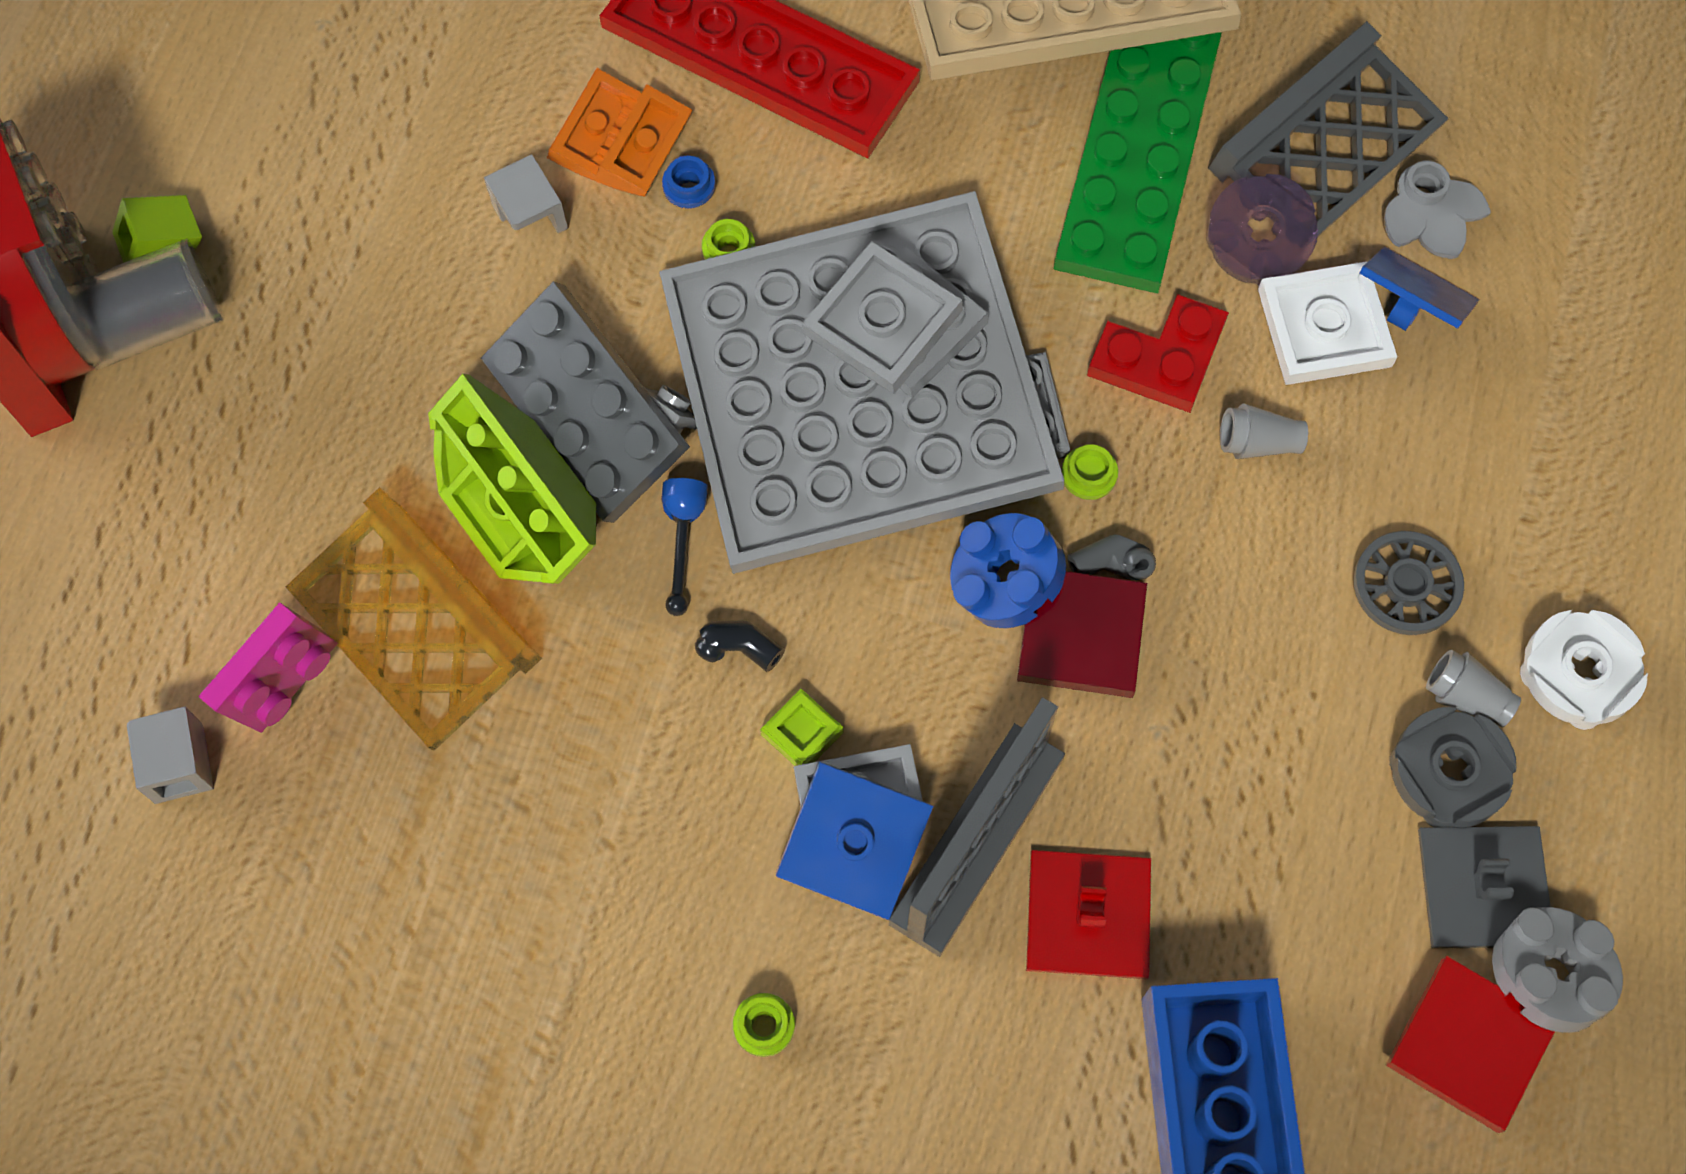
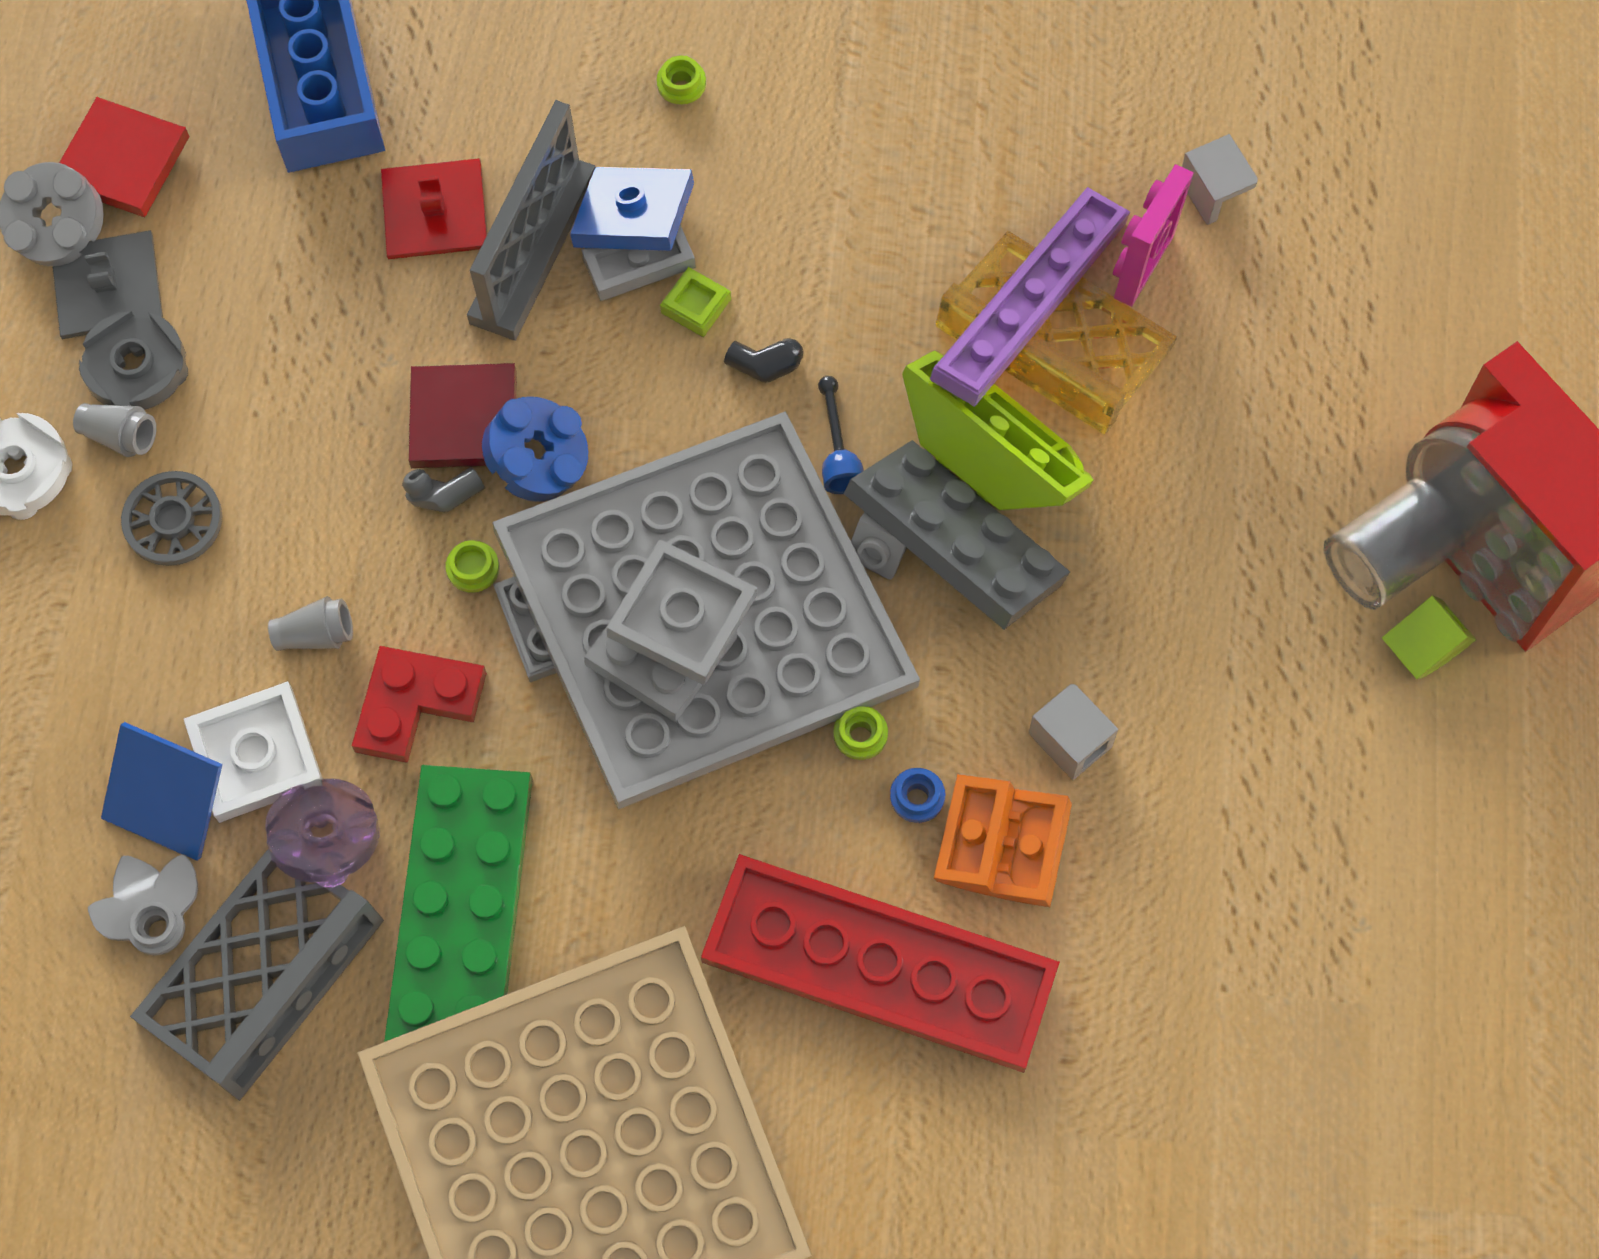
camera: 170 degrees right, 0 degrees up
(425, 633) = (1029, 297): none -> medium lavender tile

